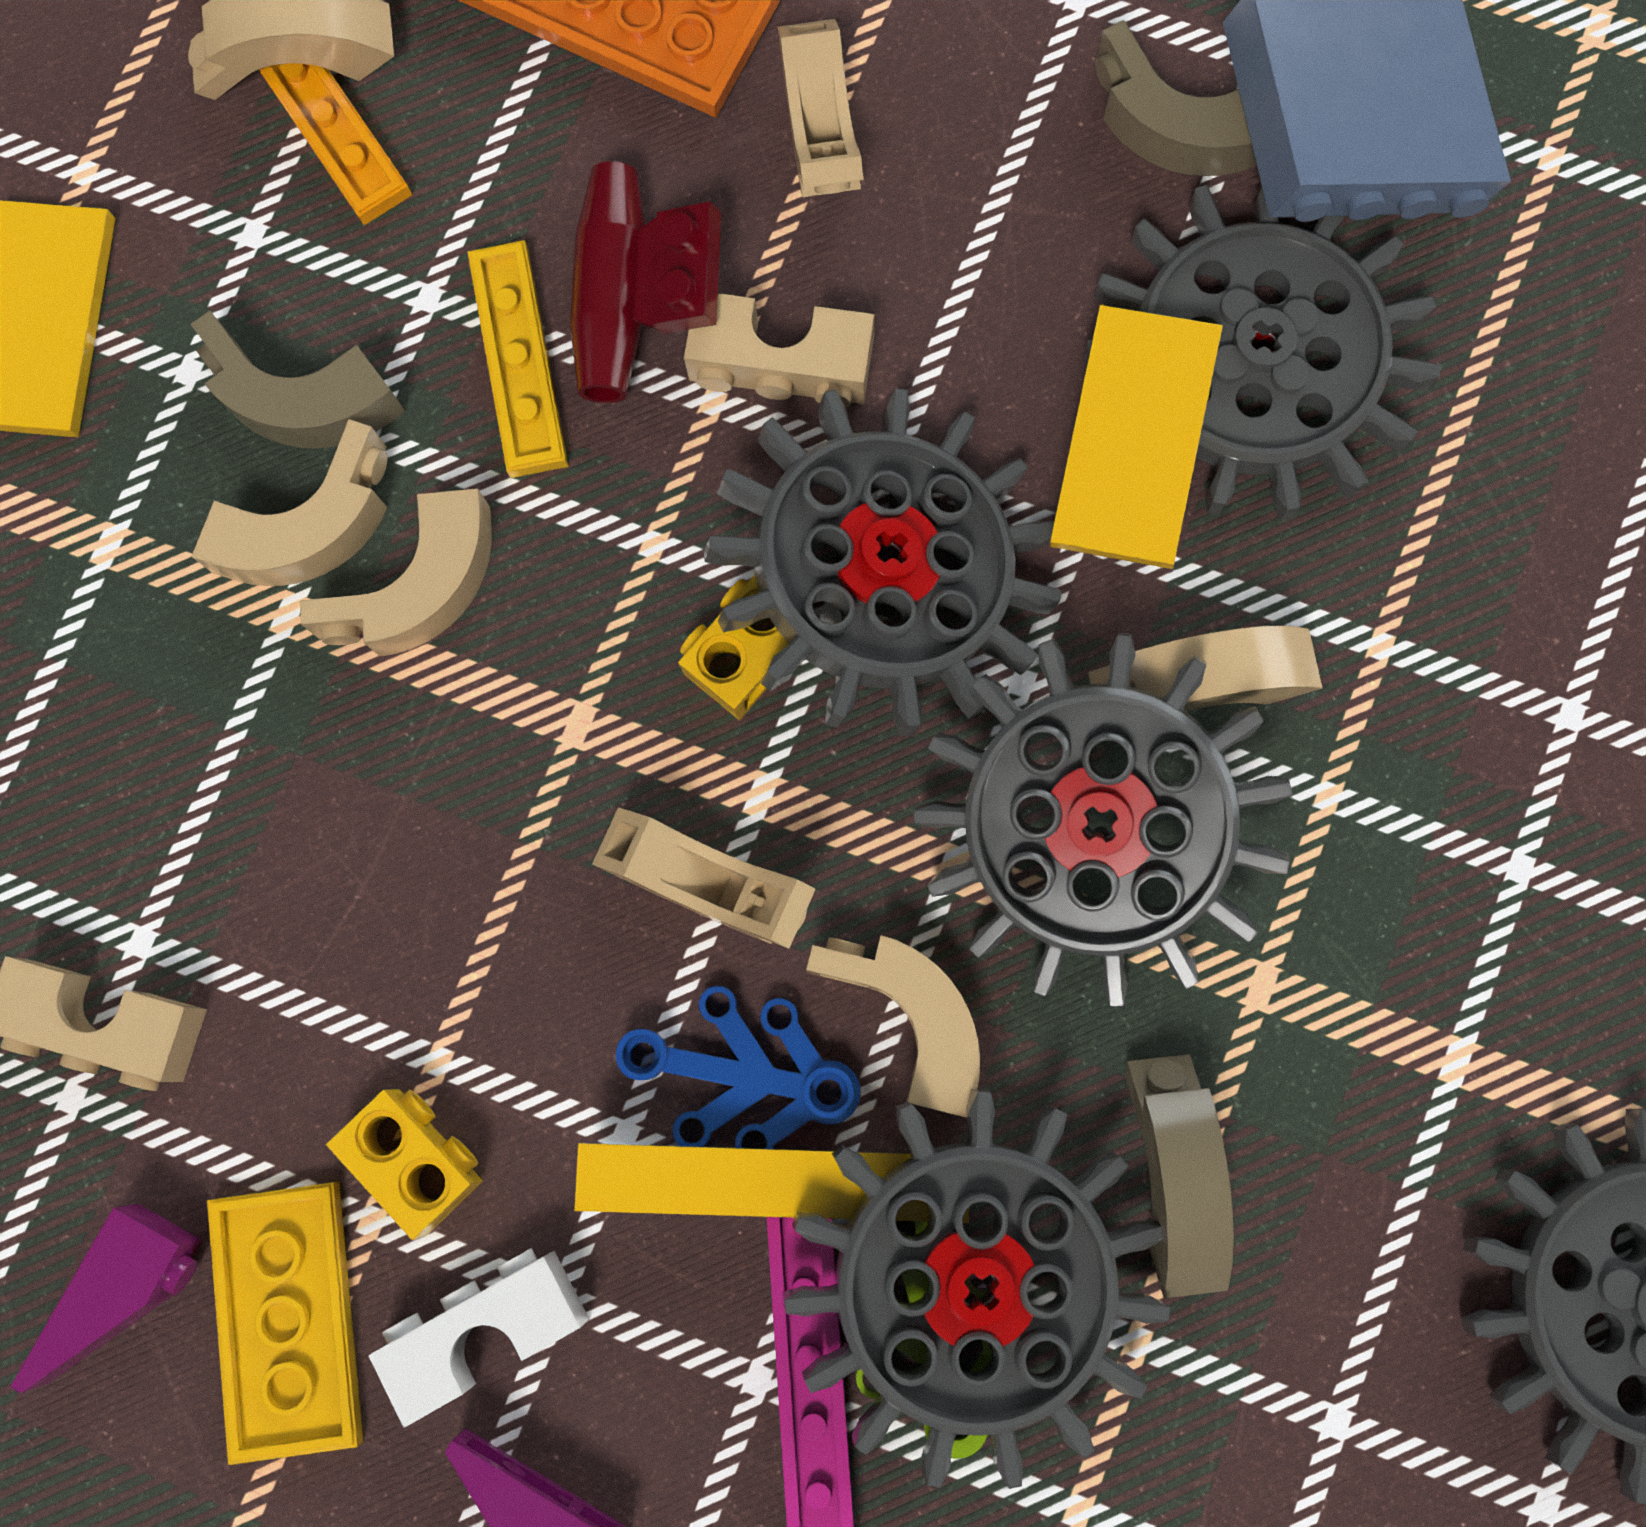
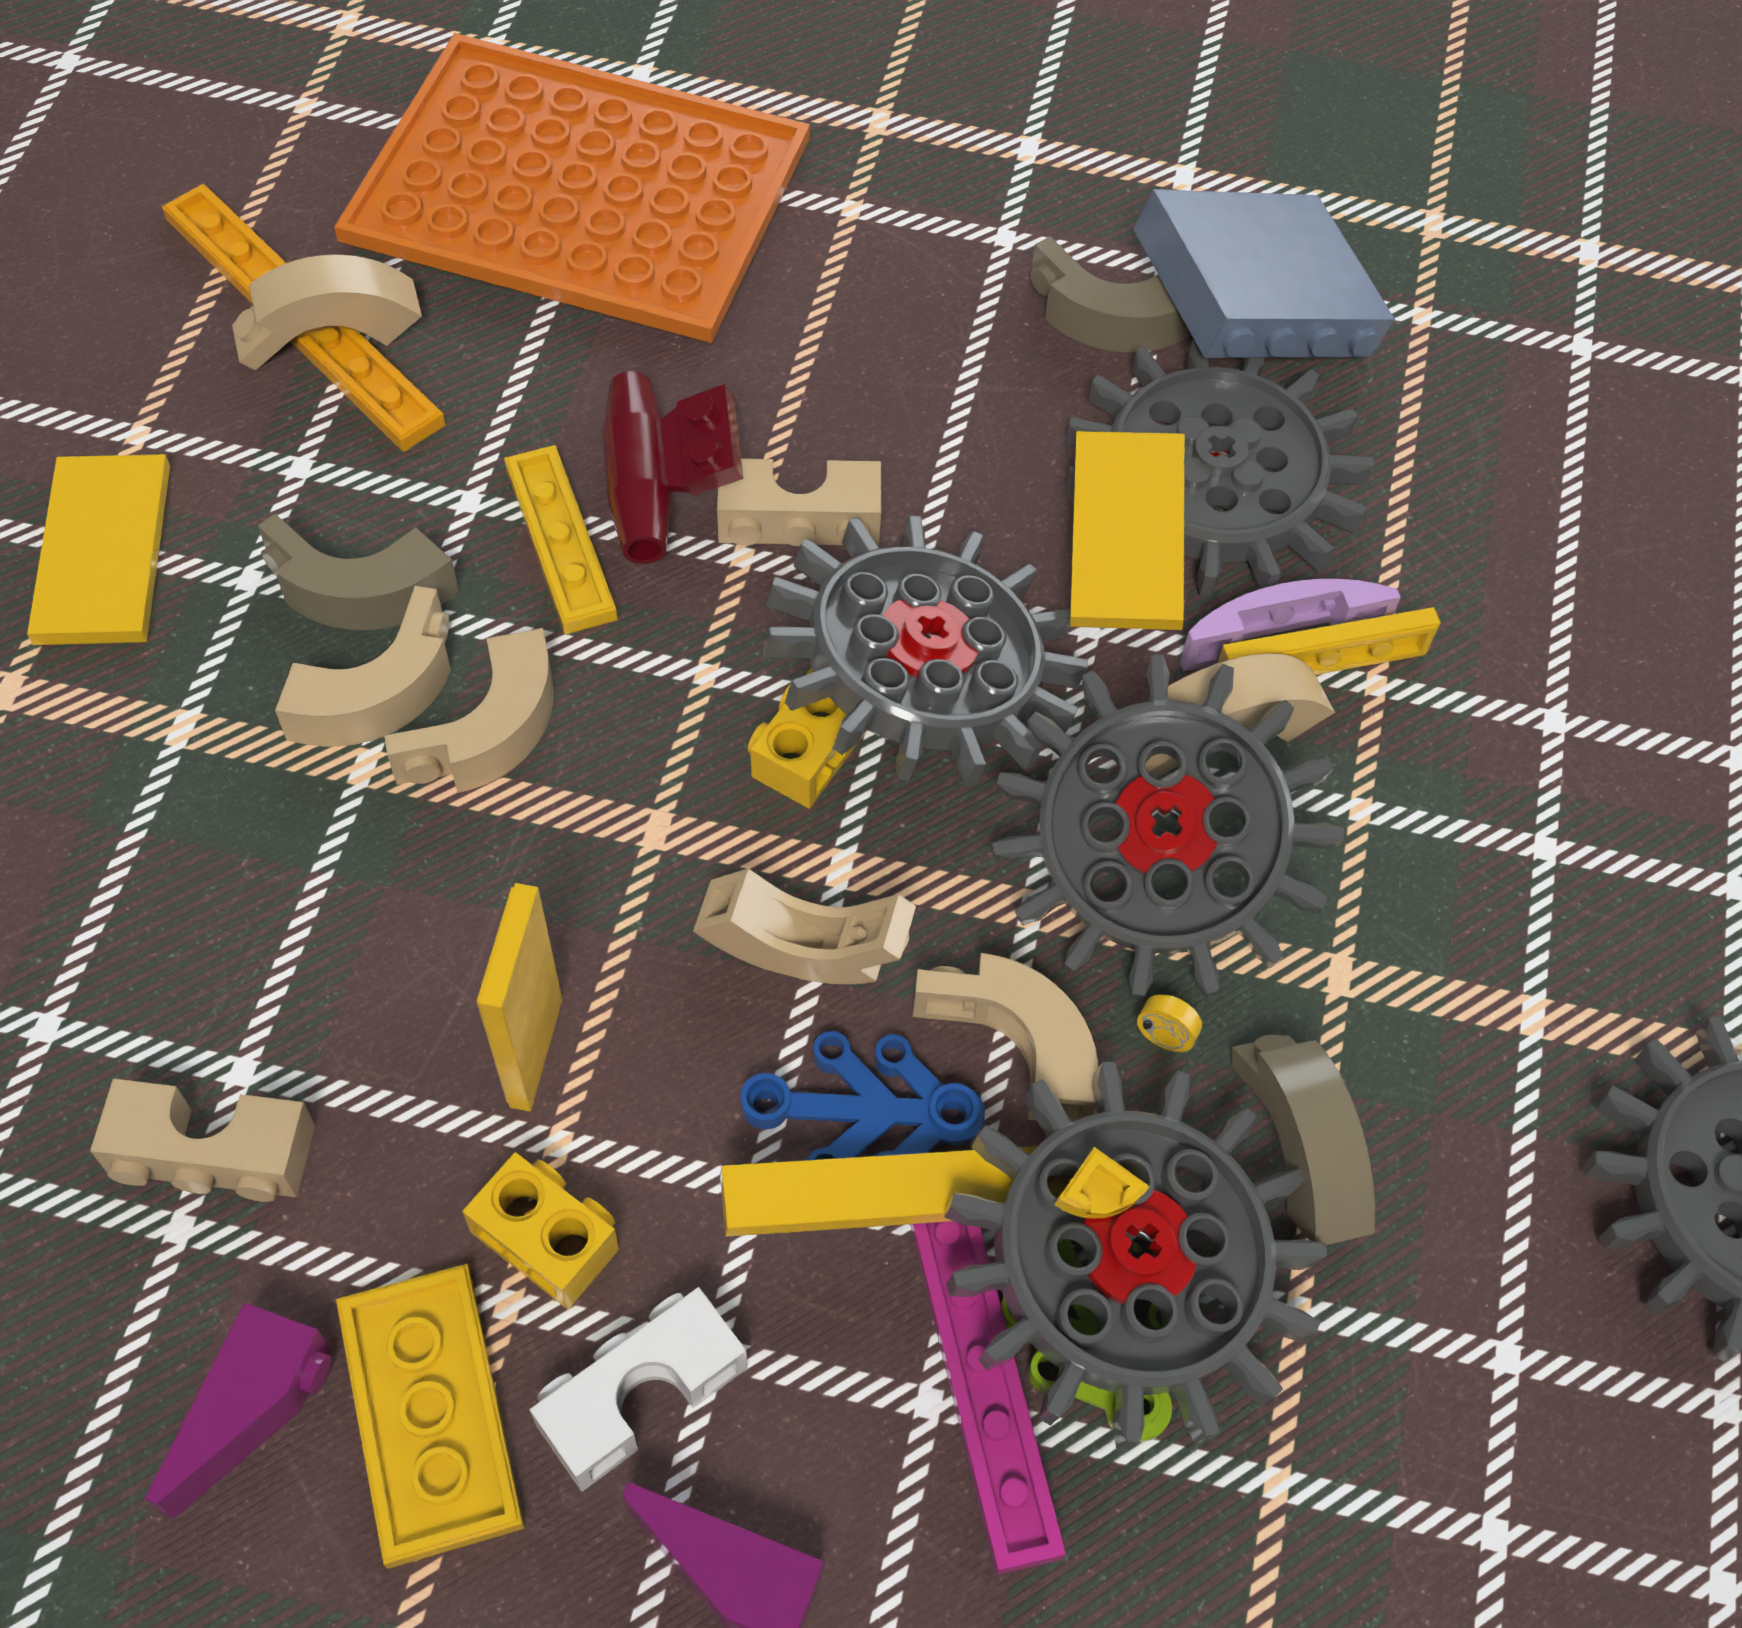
camera: 20 degrees left, 20 degrees down
(390, 952) = (520, 996): none -> yellow tile
(819, 108) = (802, 324): tan arch -> none
(946, 1235) = (1100, 1188): none -> yellow tile
(1067, 1027) = (1169, 1023): none -> yellow tile
(1335, 605) = (1349, 643): none -> yellow tile
(1368, 554) = (1284, 609): none -> lavender slope

